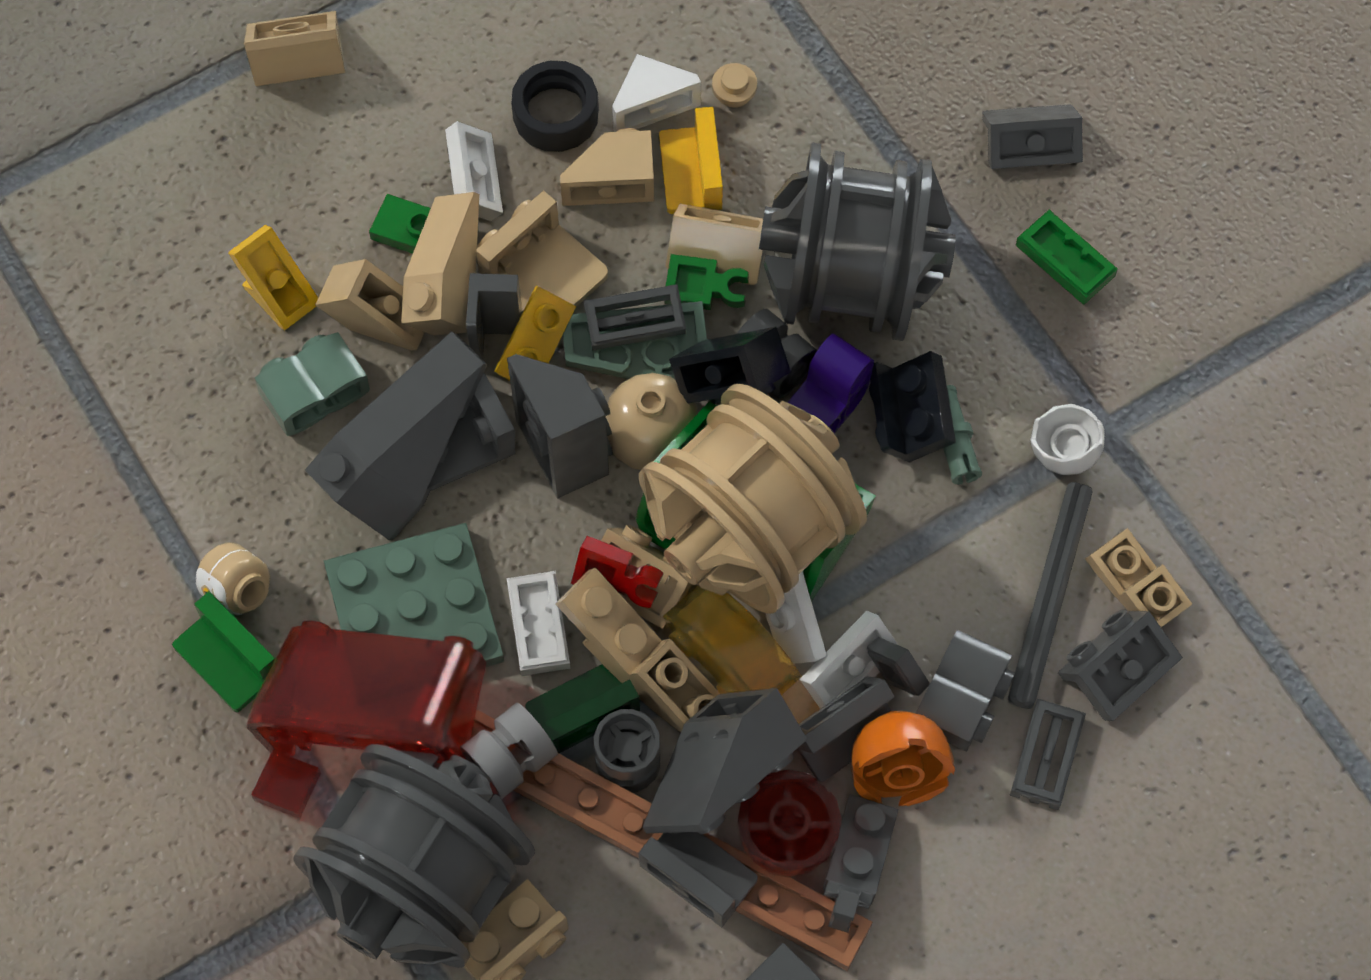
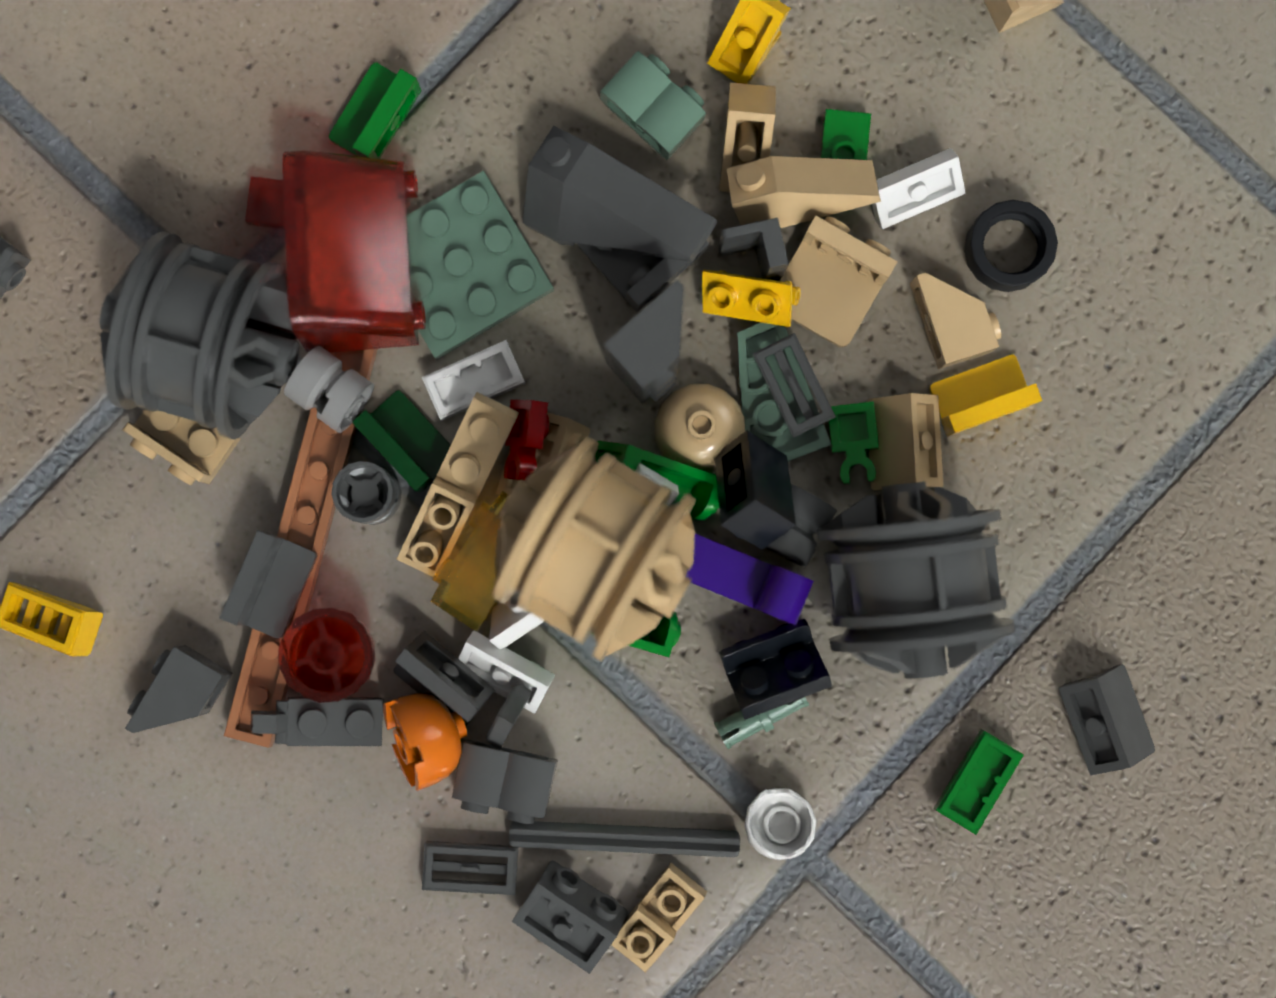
camera: 75 degrees right, 20 degrees up
(233, 577) = (441, 95): tan head -> none
(654, 93) = (1049, 336): white slope -> none
(723, 759) = (358, 581): dark grey slope -> none
(734, 84) = (1084, 413): tan plate -> none

